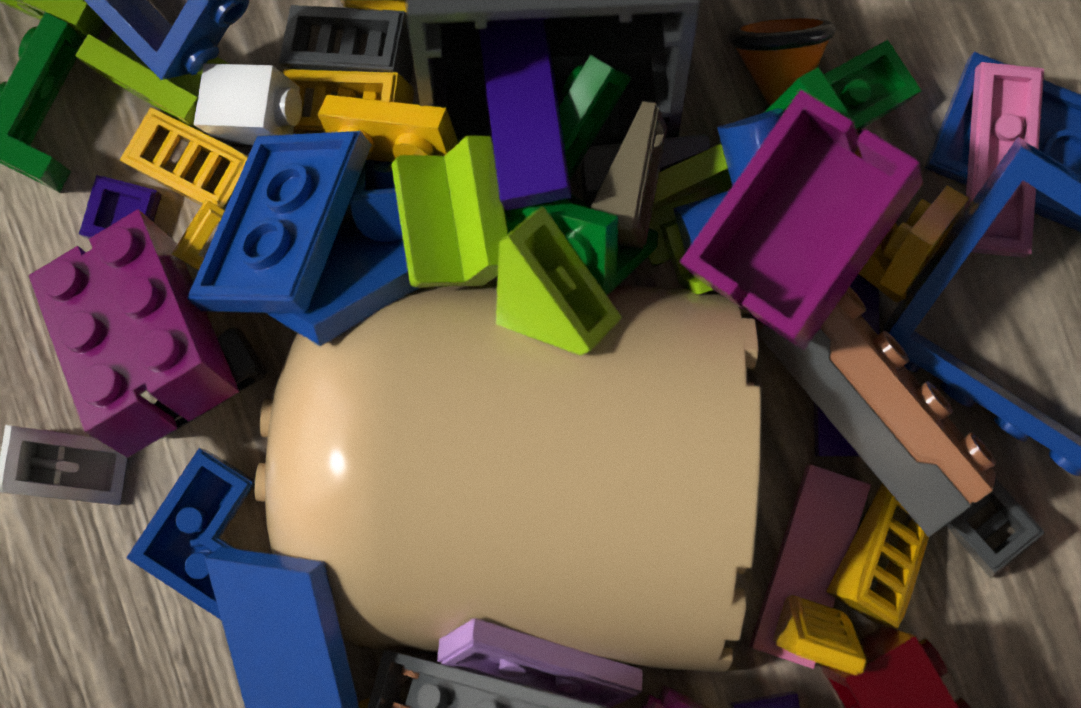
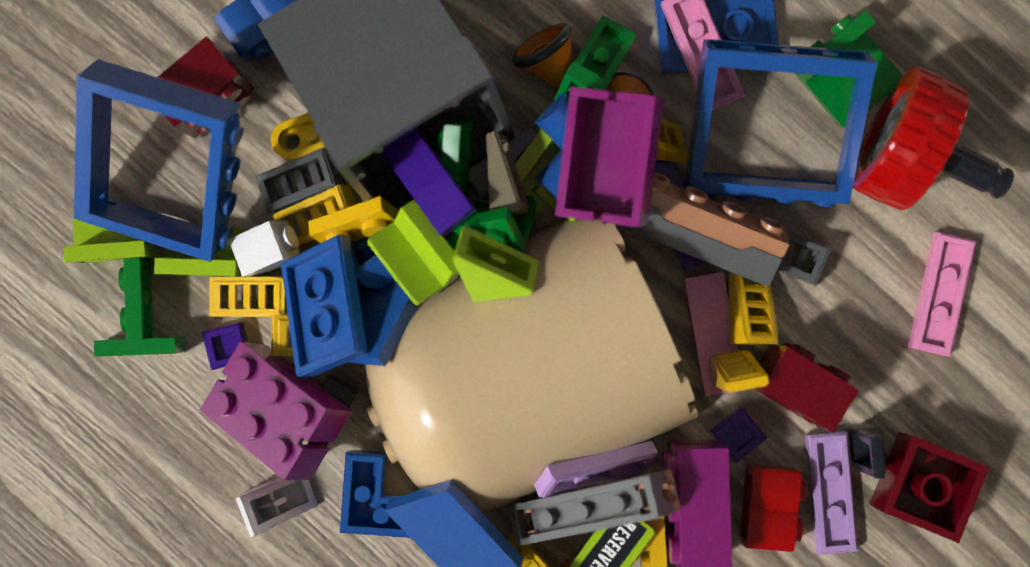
camera: 25 degrees left, 5 degrees up
(920, 238) = (679, 122): yellow plate -> none

